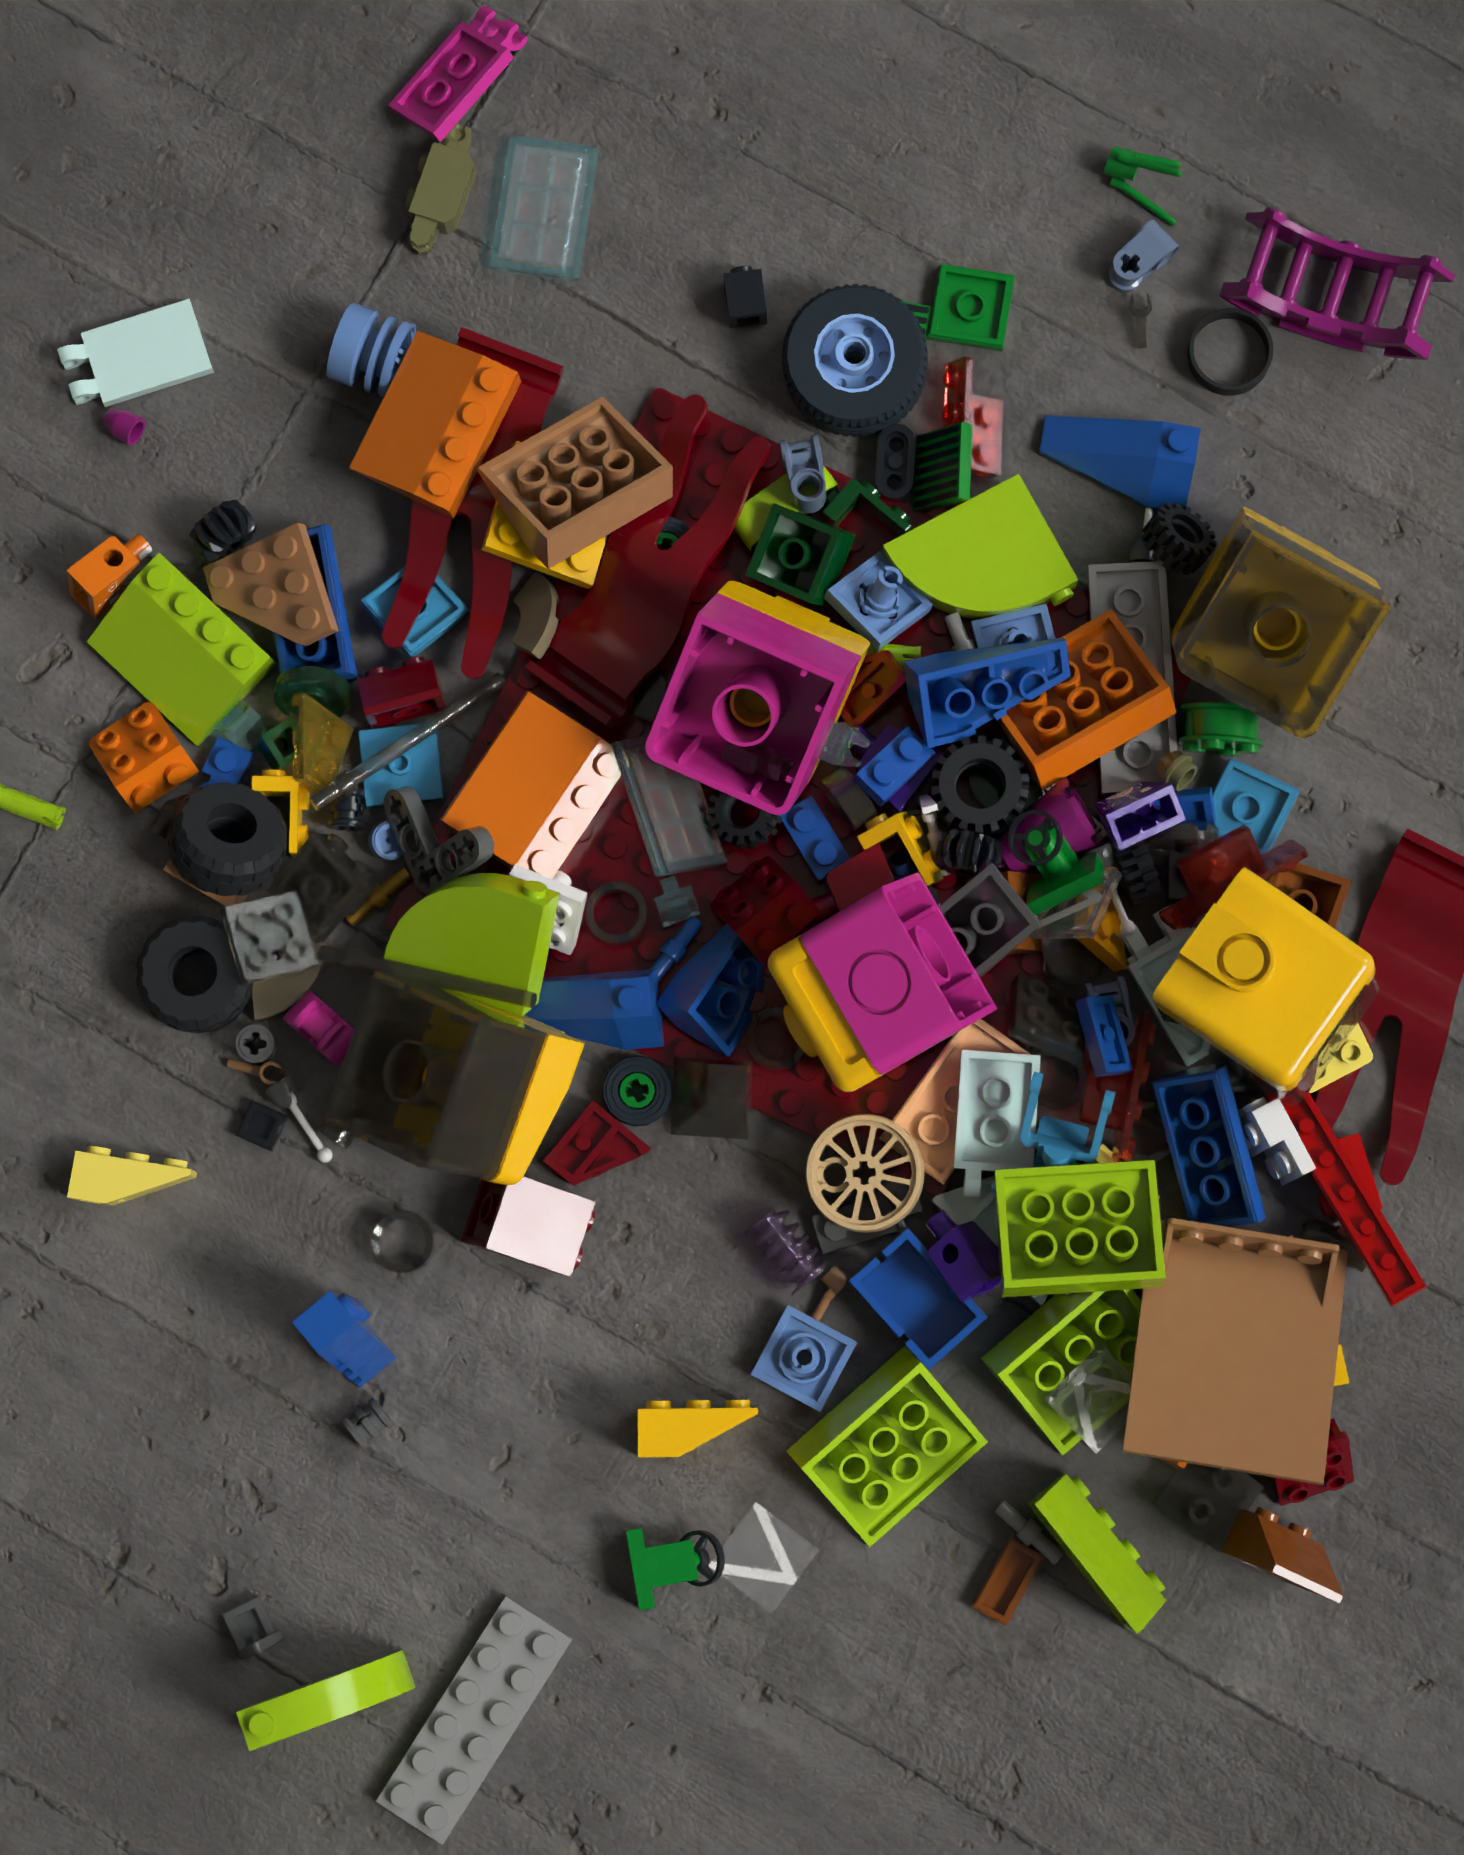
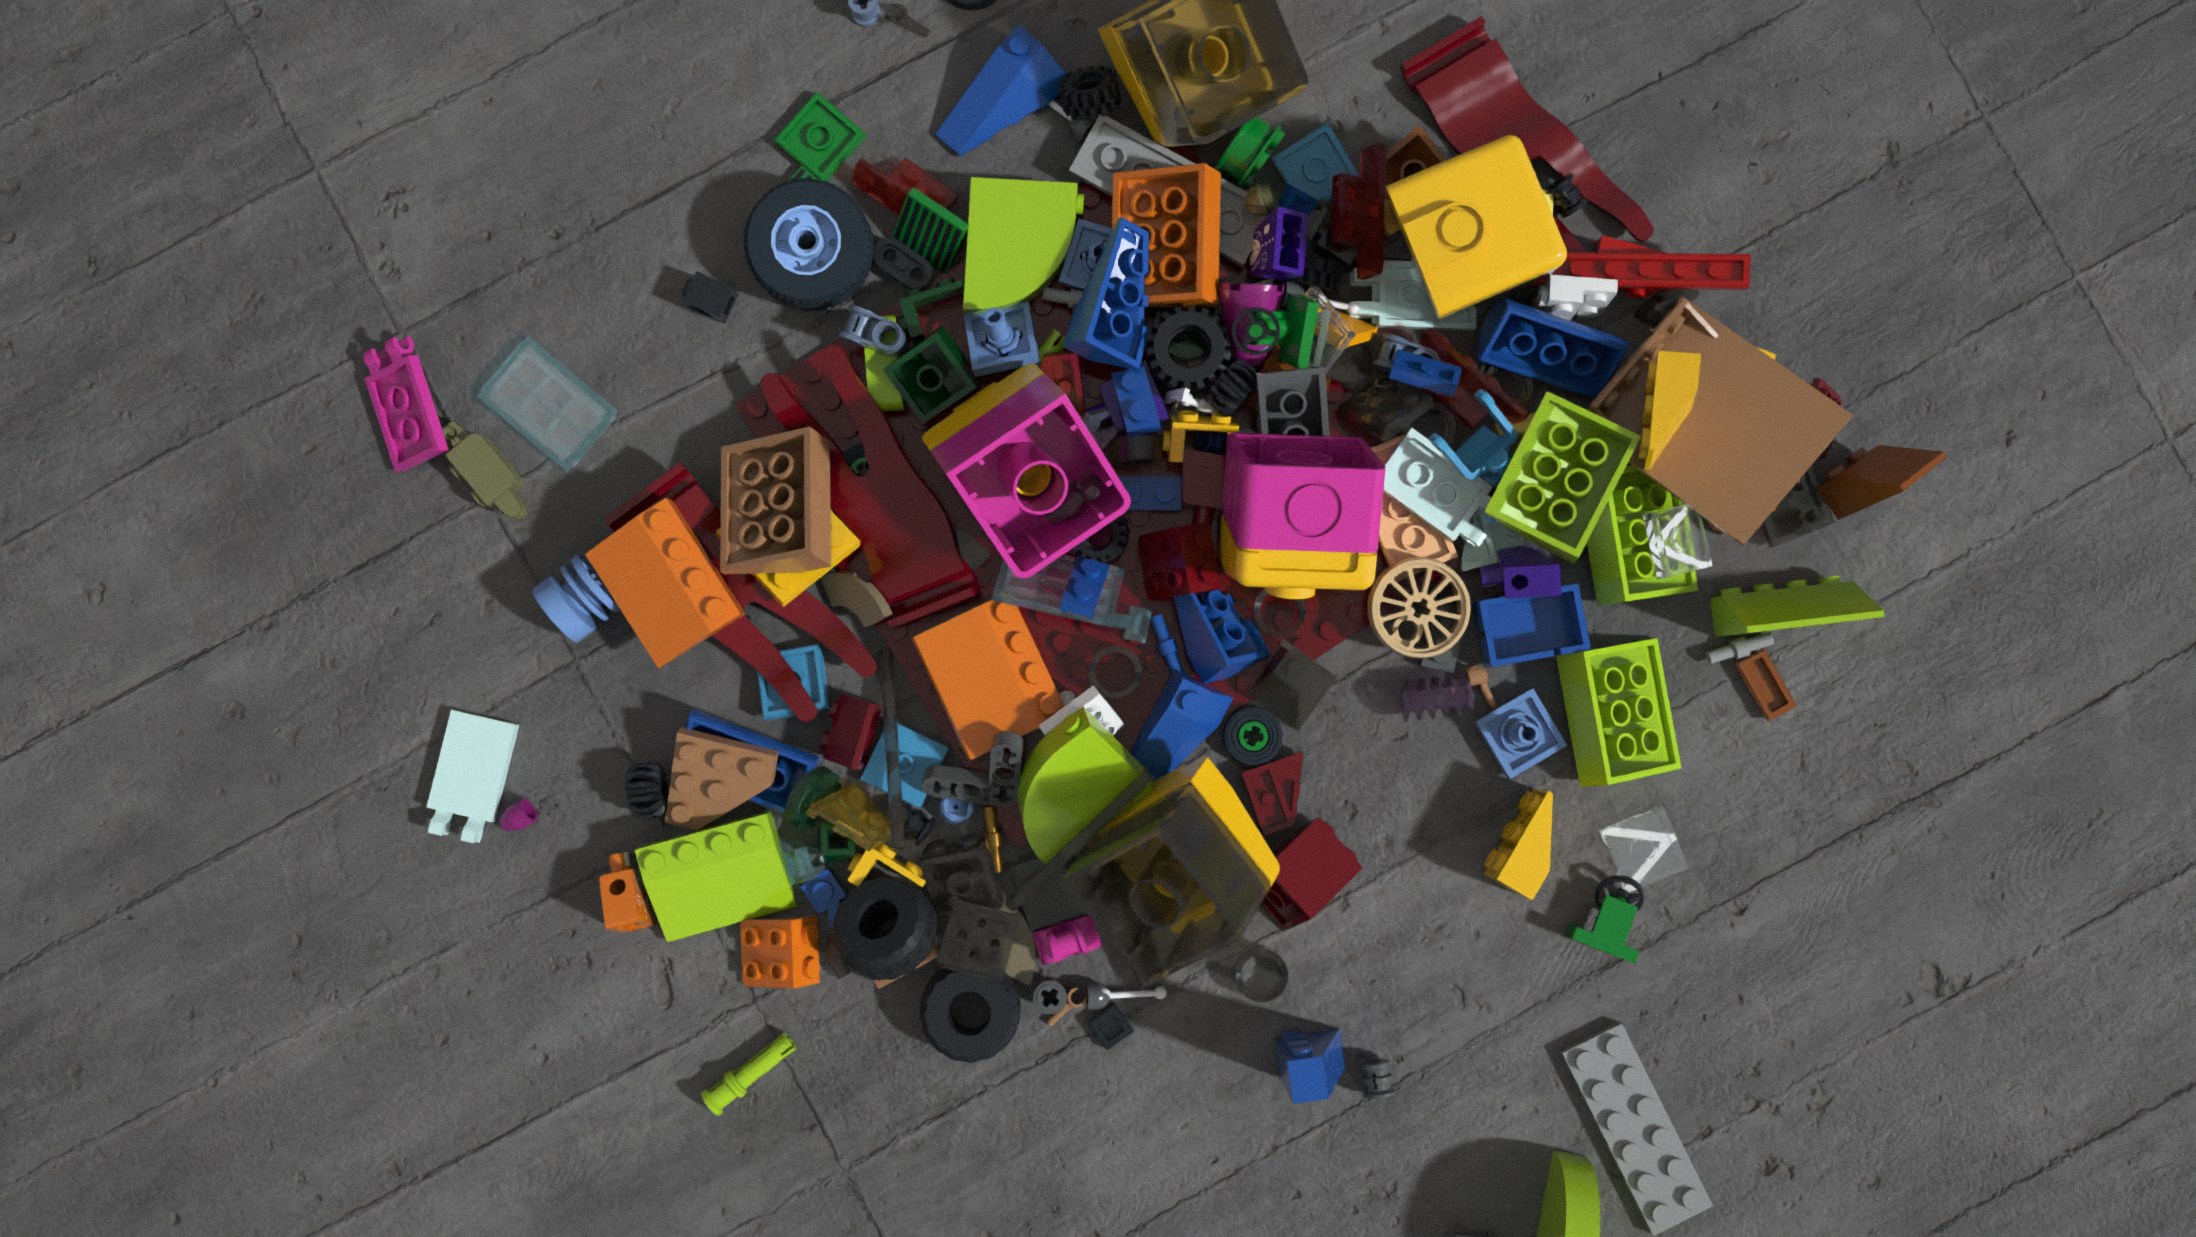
camera: 65 degrees left, 5 degrees up
(114, 1180) = (1084, 1163): light yellow slope -> none
(680, 827) = (1085, 587): none -> blue plate
(1218, 1290) = (1672, 388): none -> yellow slope
(1379, 1075) = (1572, 191): none -> black bush

